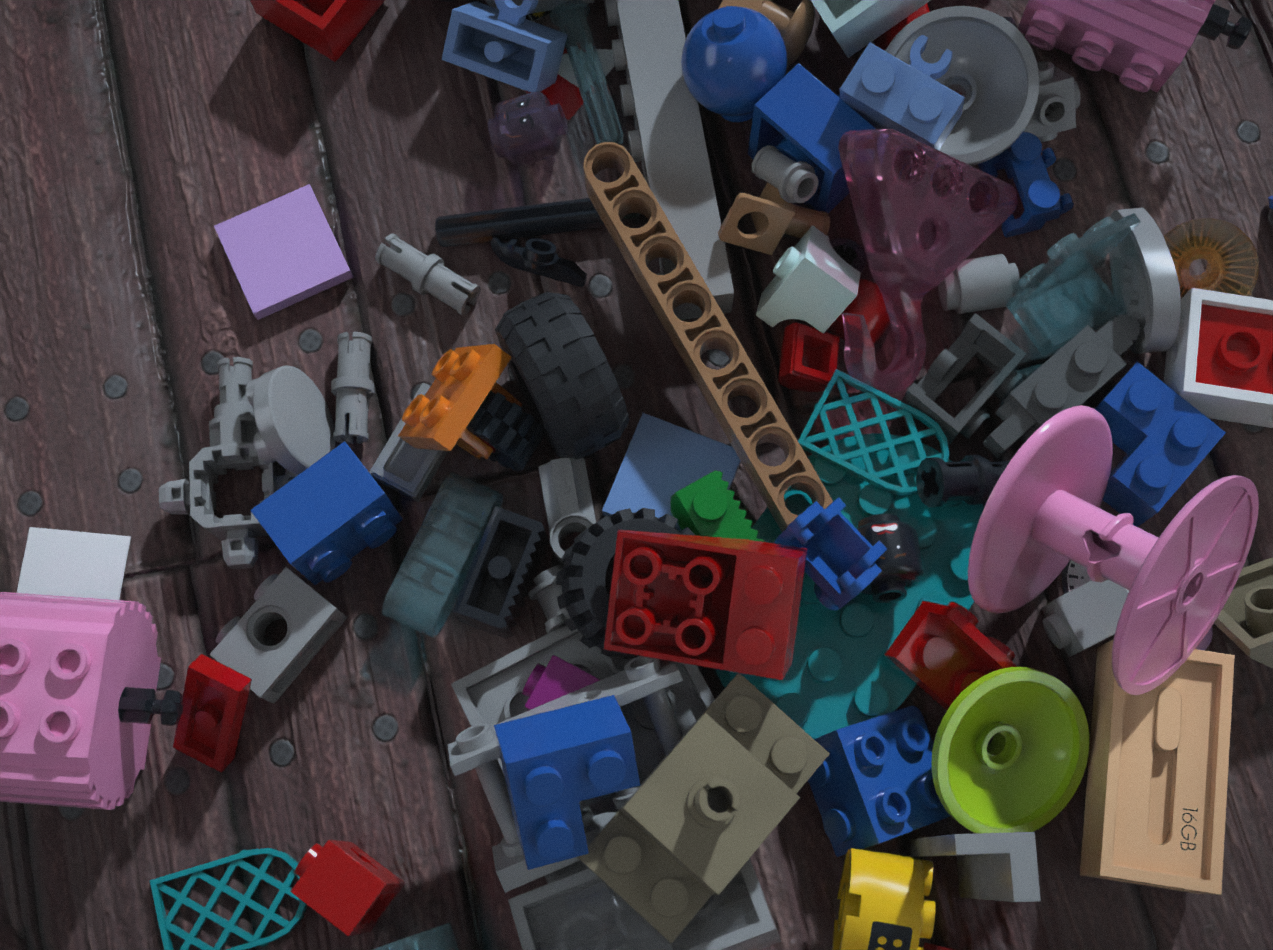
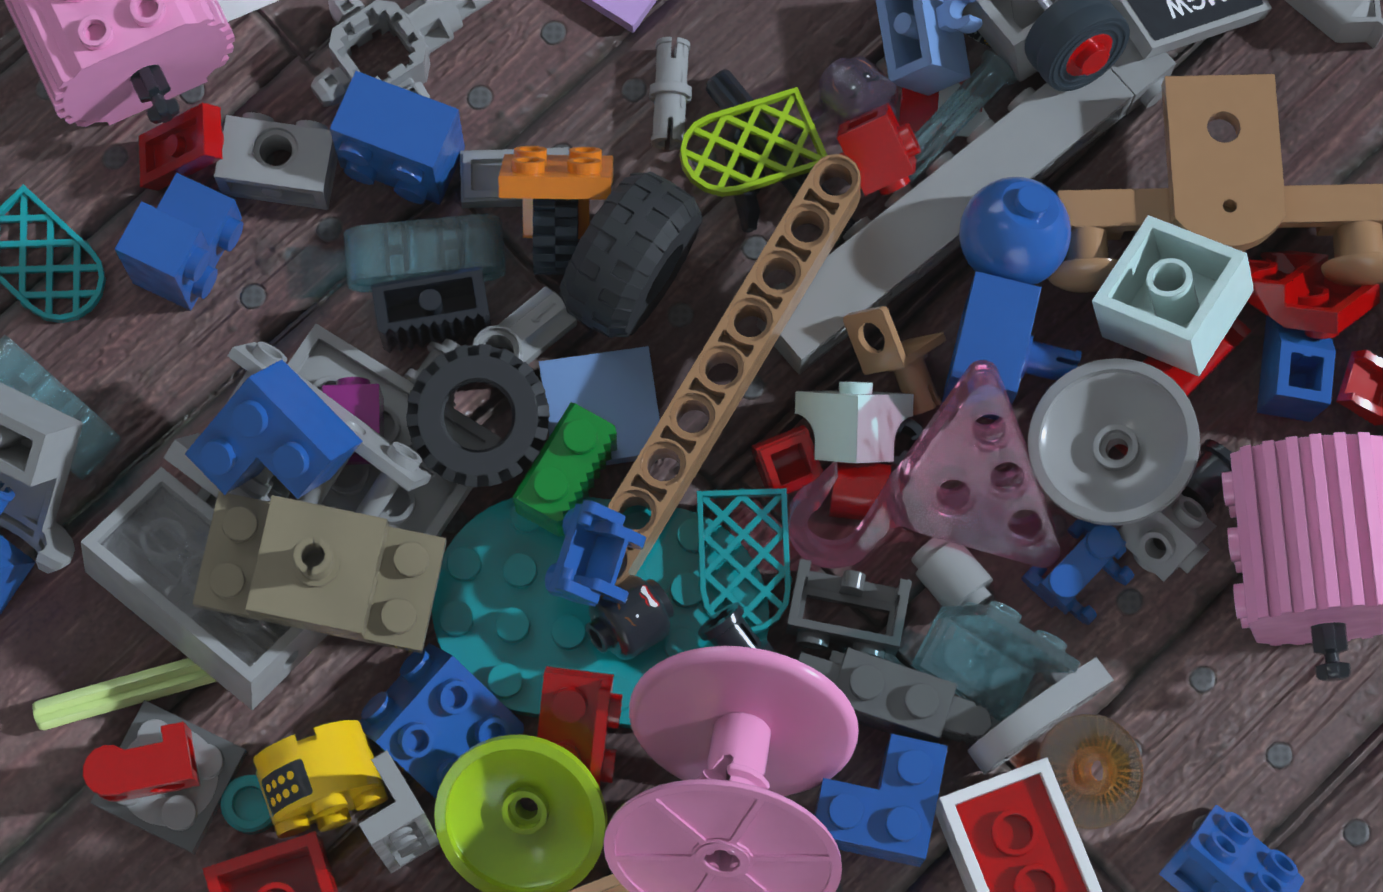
camera: 55 degrees right, 0 degrees up
(290, 419) = (464, 58): light grey tile -> none
(298, 762) = (180, 241): none -> blue brick
(345, 886) = (101, 335): red brick -> none
(352, 388) = (528, 92): light grey pin -> none
(525, 180) = (752, 183): none -> lime window
(586, 122) = (880, 149): none -> red brick
(706, 601) = (487, 476): red slope -> none
(793, 179) = (934, 347): light grey pin -> none
(904, 95) = (1060, 396): medium blue brick -> none

